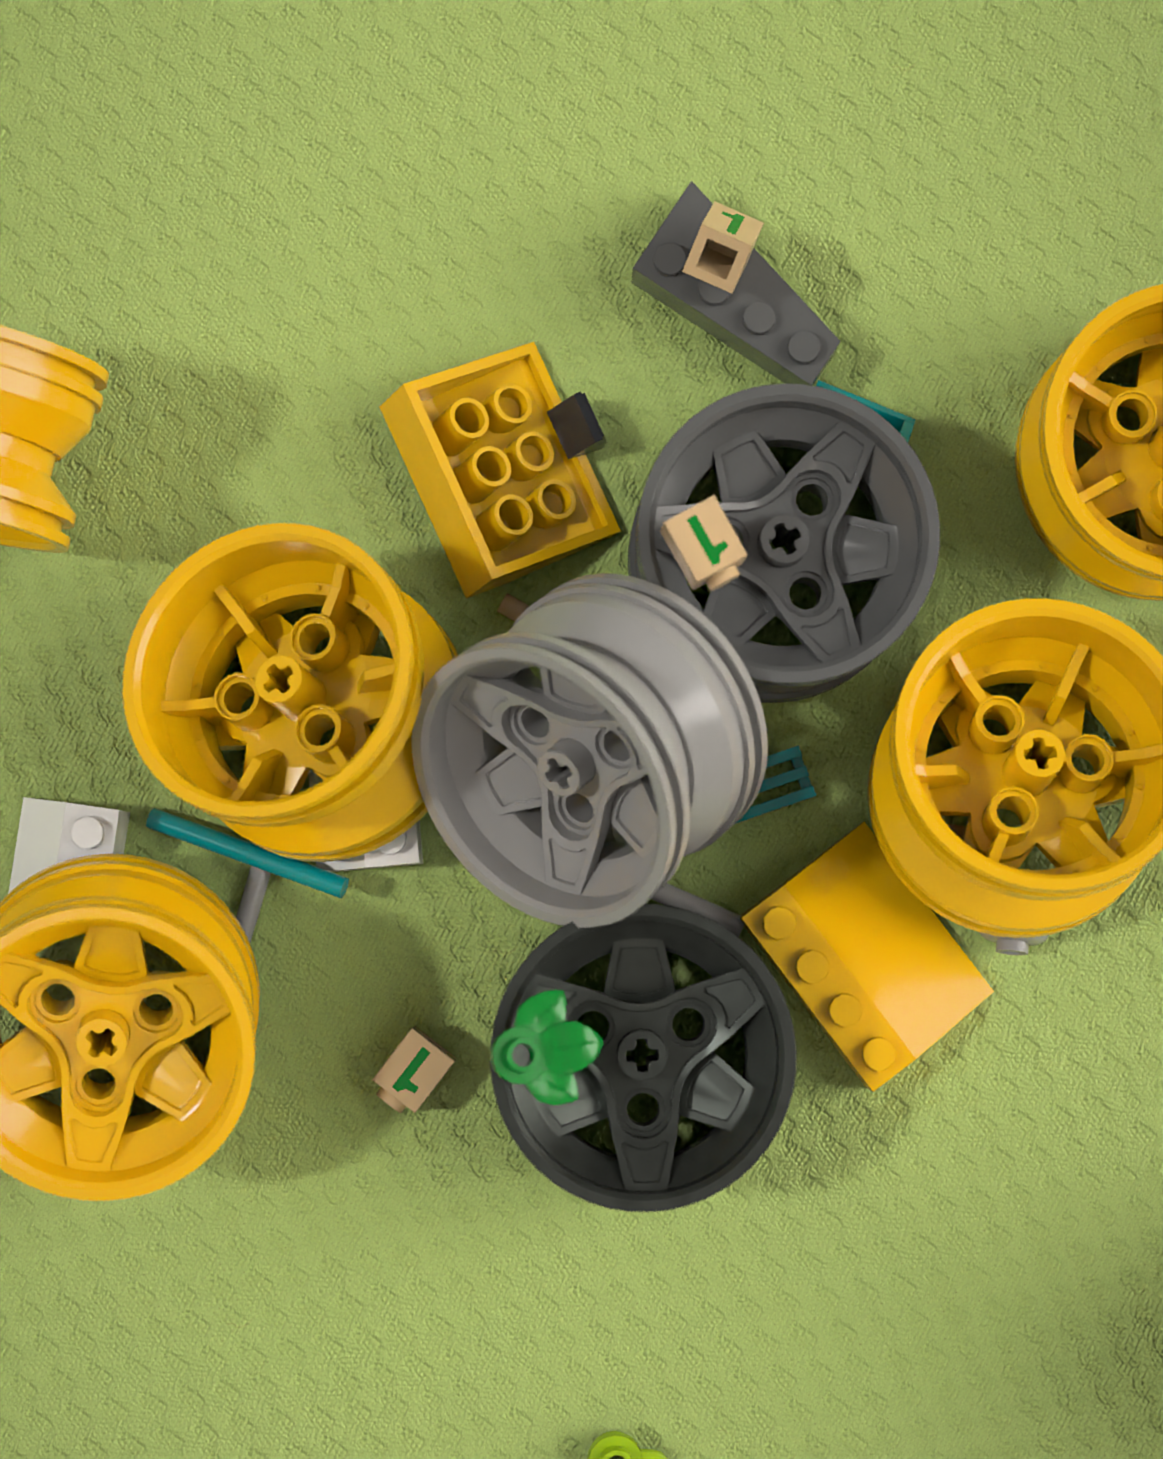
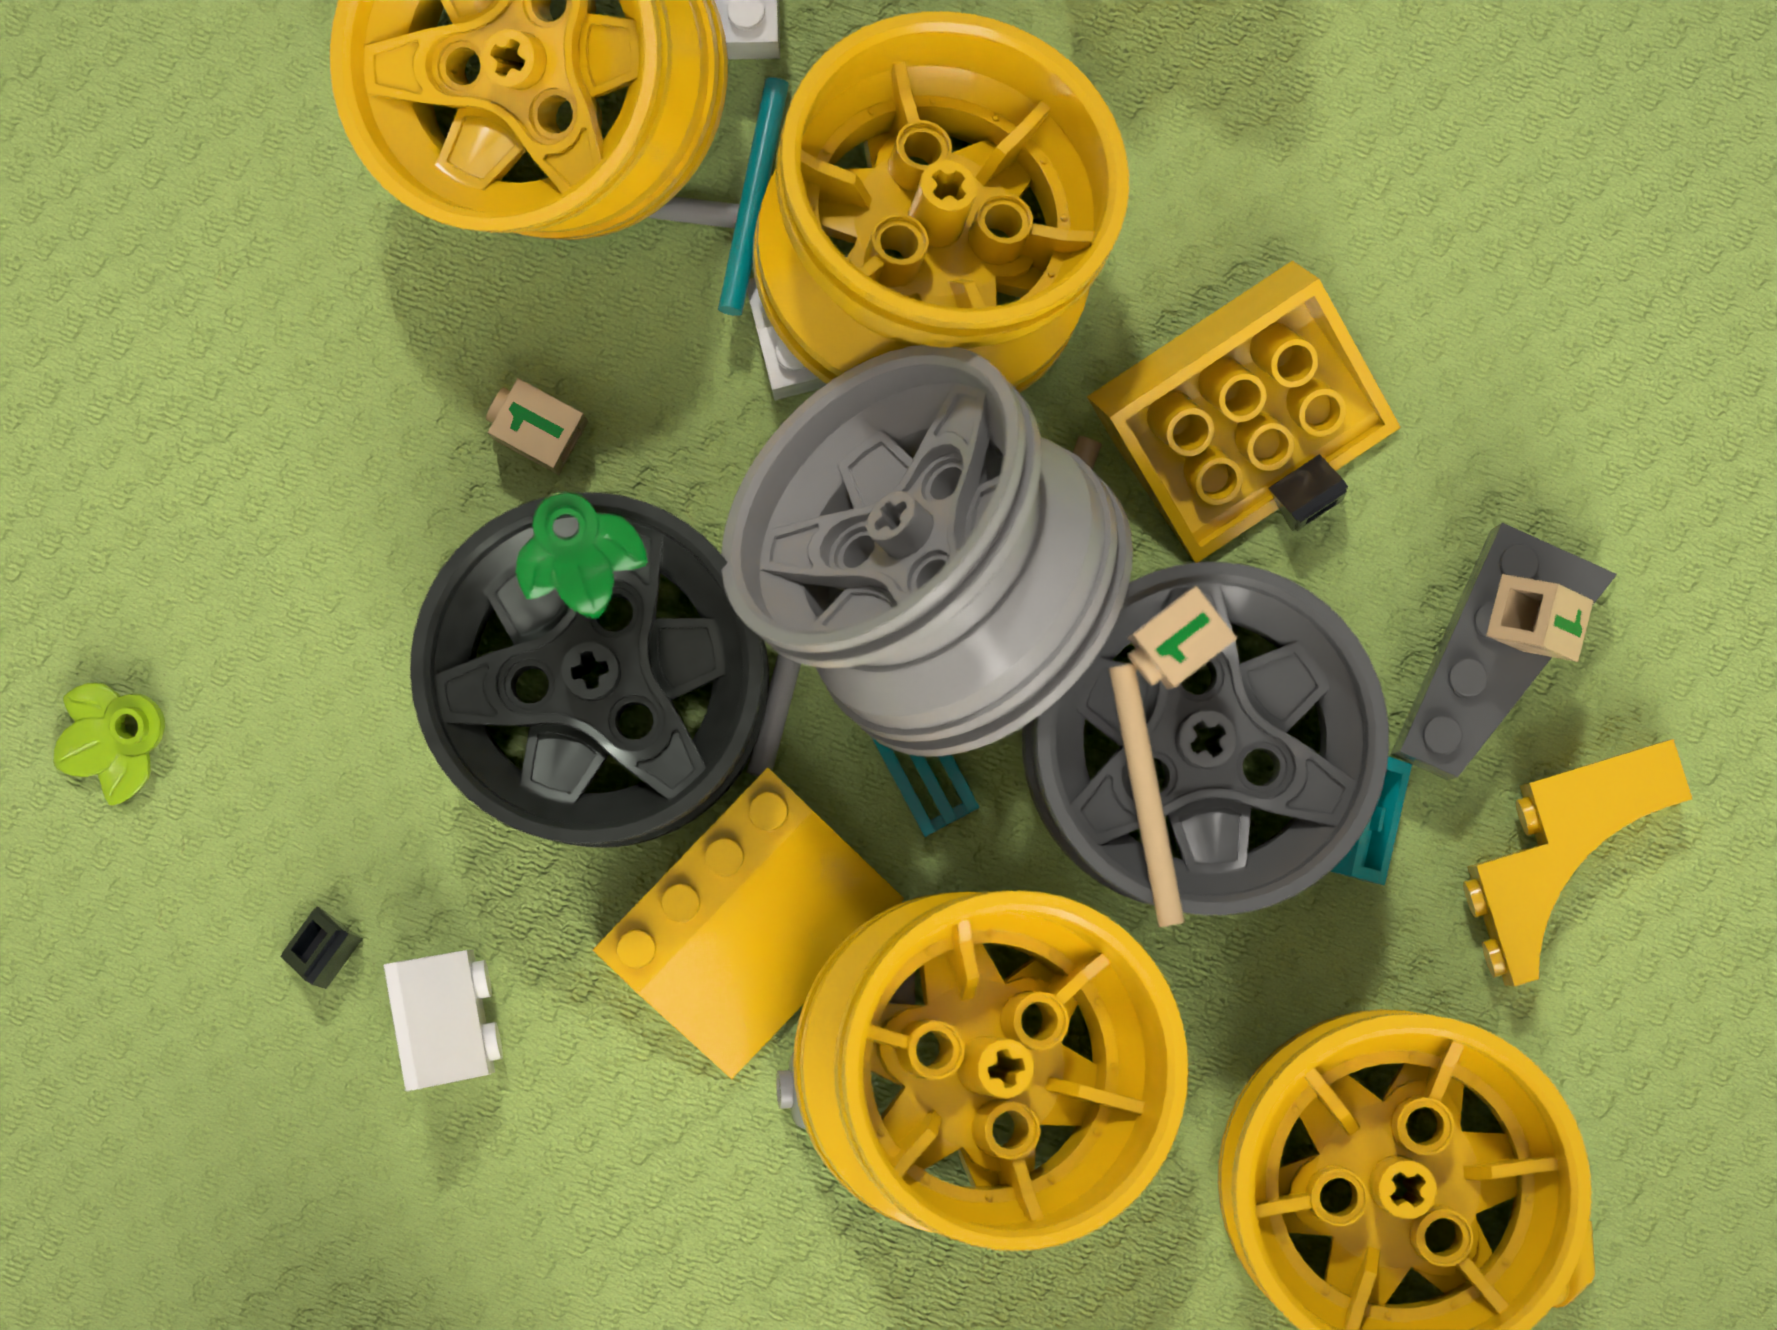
camera: 85 degrees right, 0 degrees up
(830, 595) = (1146, 795): none -> tan bar
(830, 1325) = (320, 948): none -> black slope
(886, 256) = (1569, 819): none -> yellow arch
(910, 1230) = (442, 1019): none -> white slope

